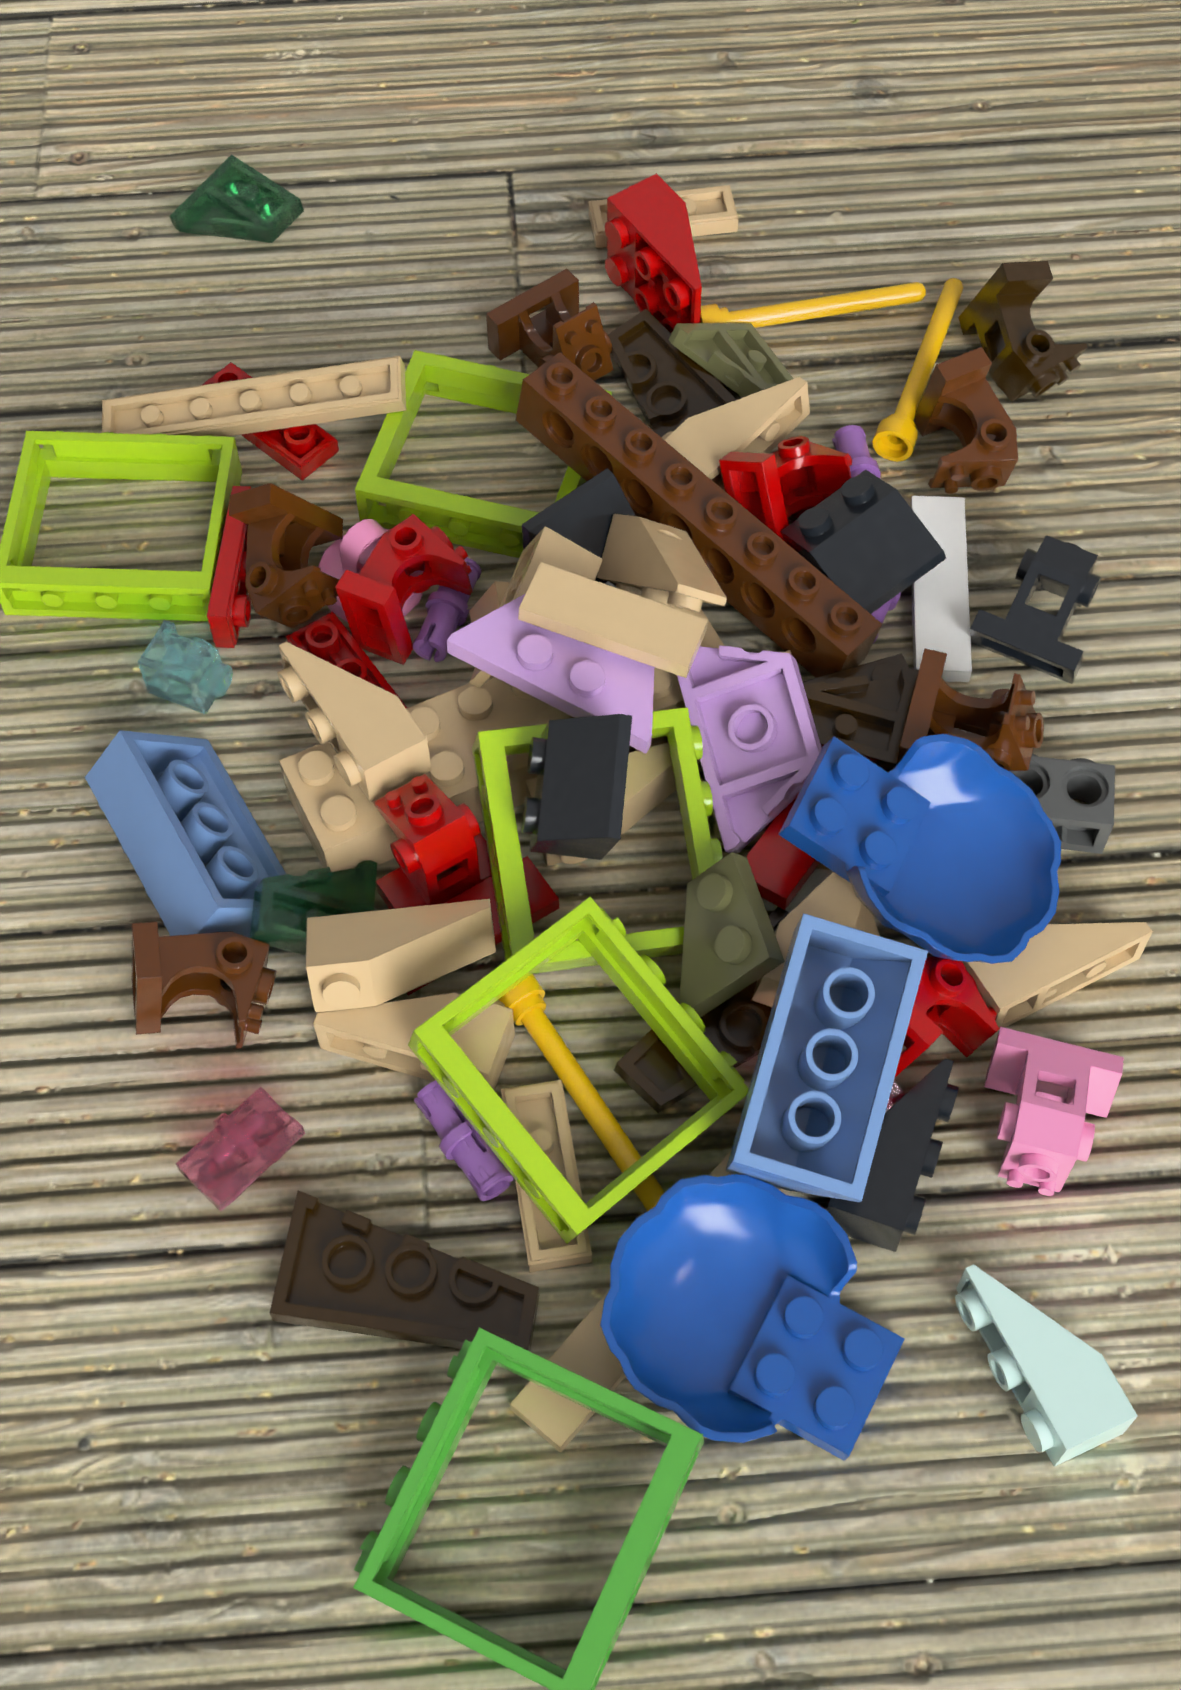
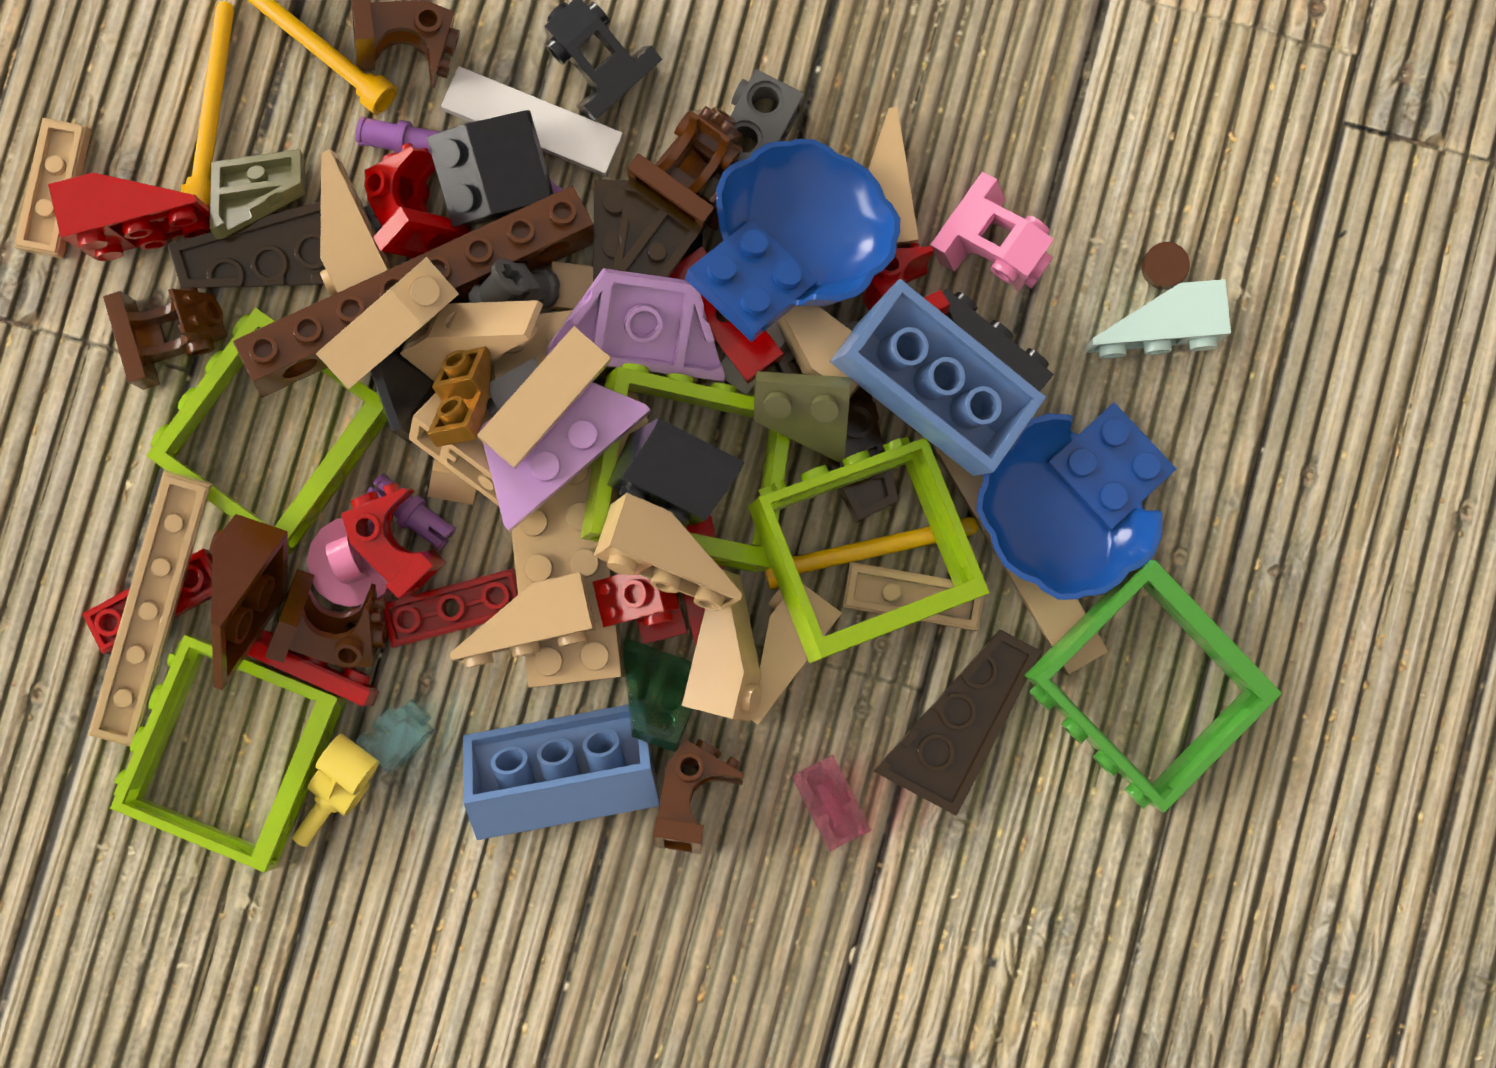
camera: 65 degrees left, 25 degrees up
(117, 629) = (337, 784): none -> light yellow beam
(289, 443) = (246, 589): none -> reddish brown slope
(463, 1143) = (890, 643): medium lavender pin -> none
(485, 791) = (657, 546): none -> tan slope
(593, 556) = (464, 393): none -> pearl gold slope
(643, 473) = (387, 323): none -> tan slope
(744, 602) = (516, 283): none -> dark grey connector
(1125, 1346) = (1165, 265): none -> reddish brown tile

